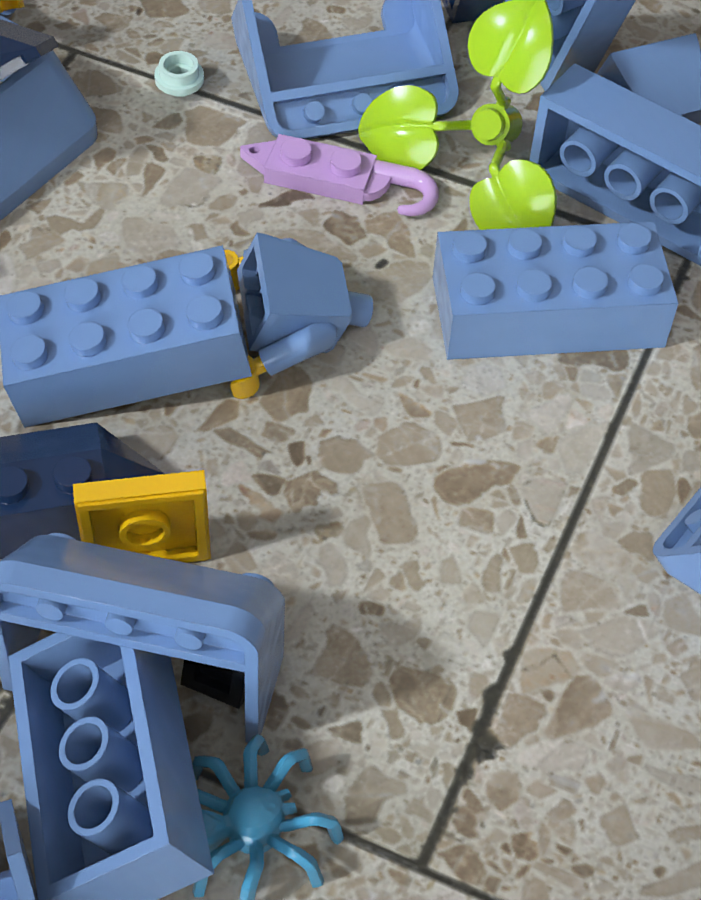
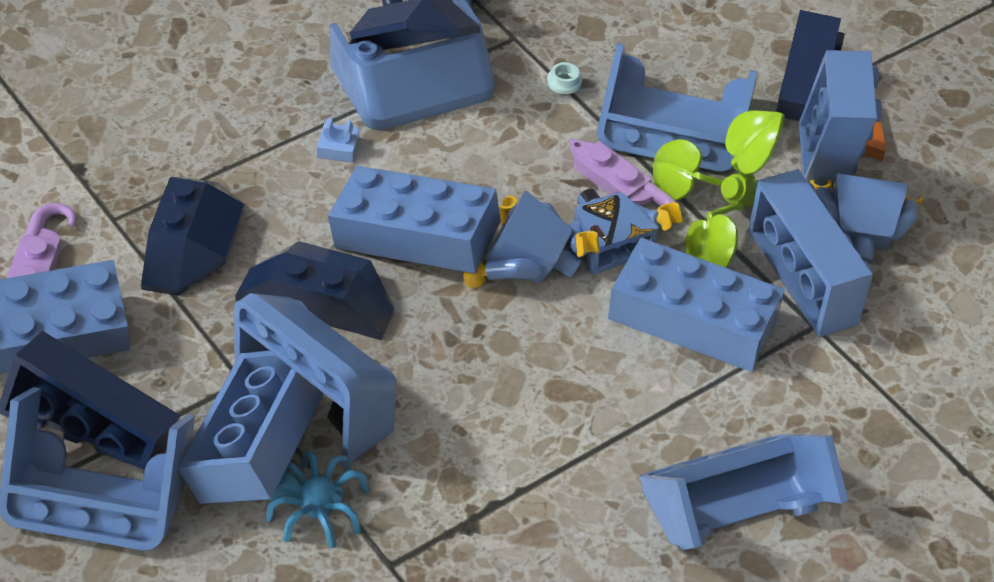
camera: 30 degrees right, 5 degrees down
(147, 515) = (359, 318): yellow plate -> none
(386, 234) = (611, 226): none -> medium blue torso

